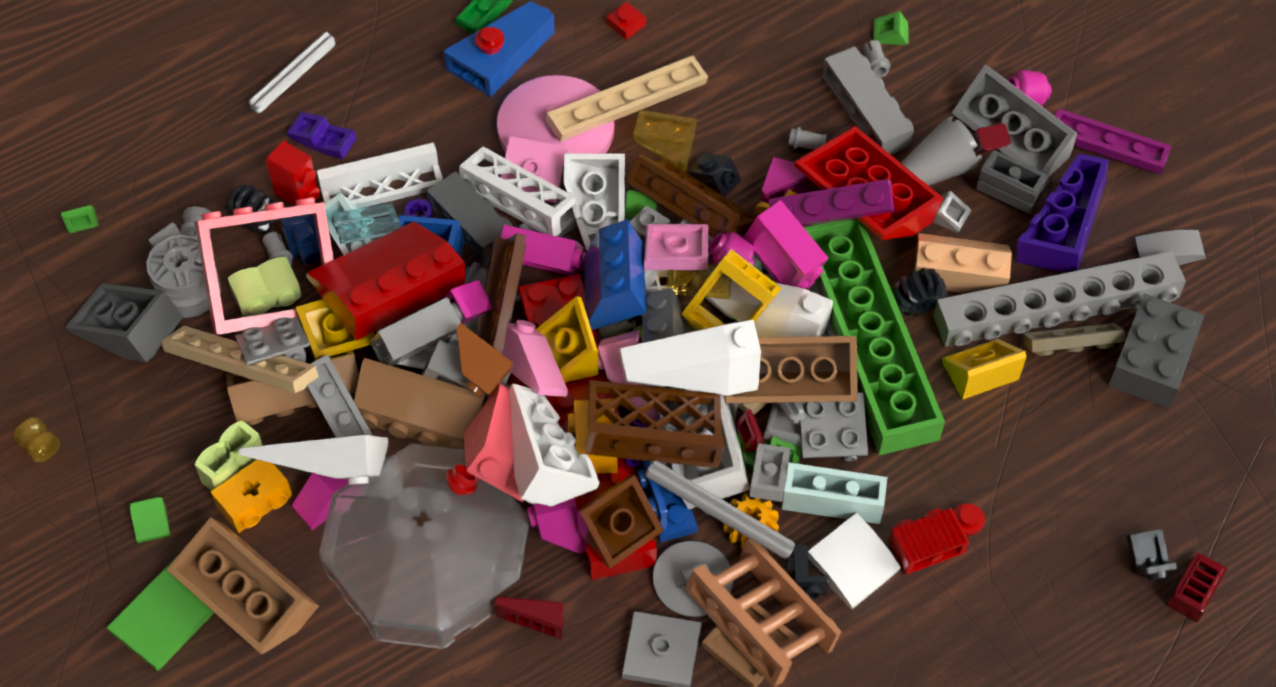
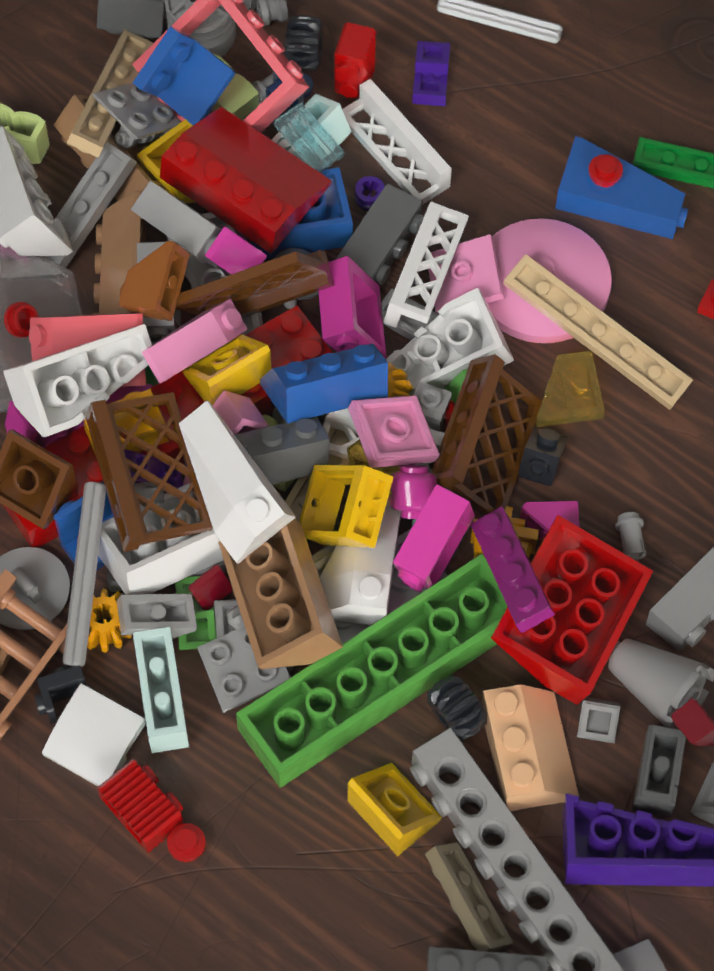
camera: 70 degrees right, 5 degrees up
(269, 285) = (184, 75): none -> blue bracket

